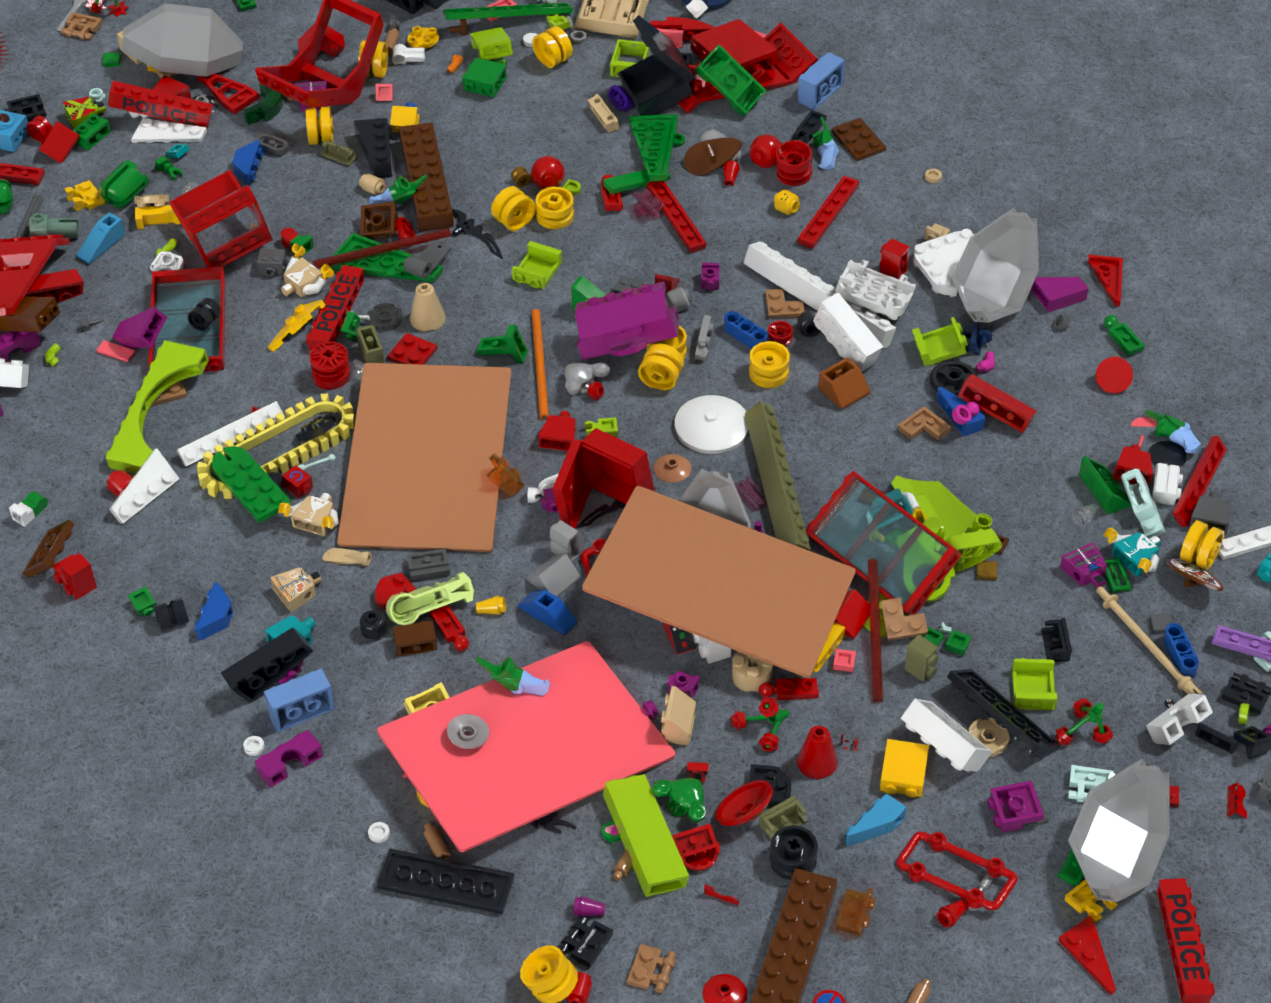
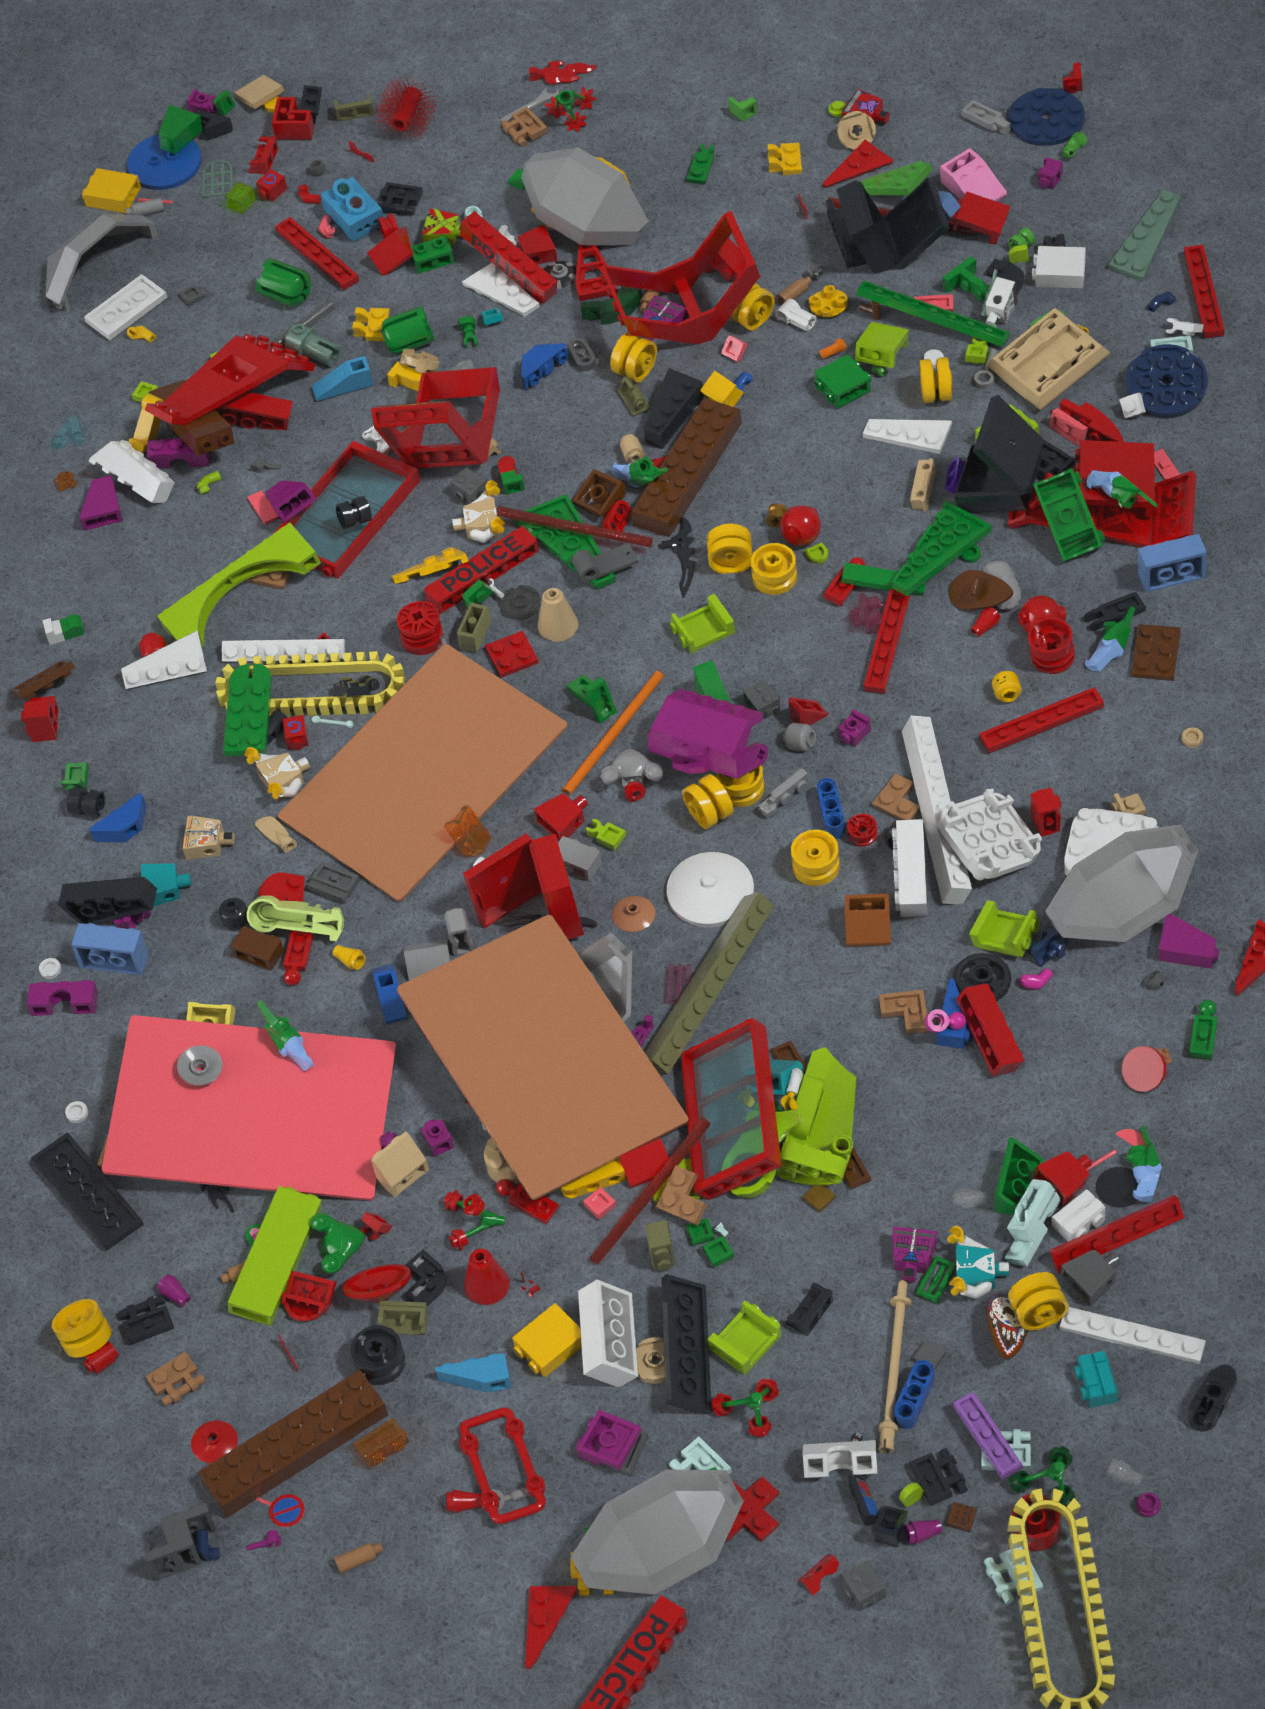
camera: 45 degrees right, 5 degrees up
(560, 89) = (916, 434): none -> white wing
(752, 47) = (1117, 487): none -> animal

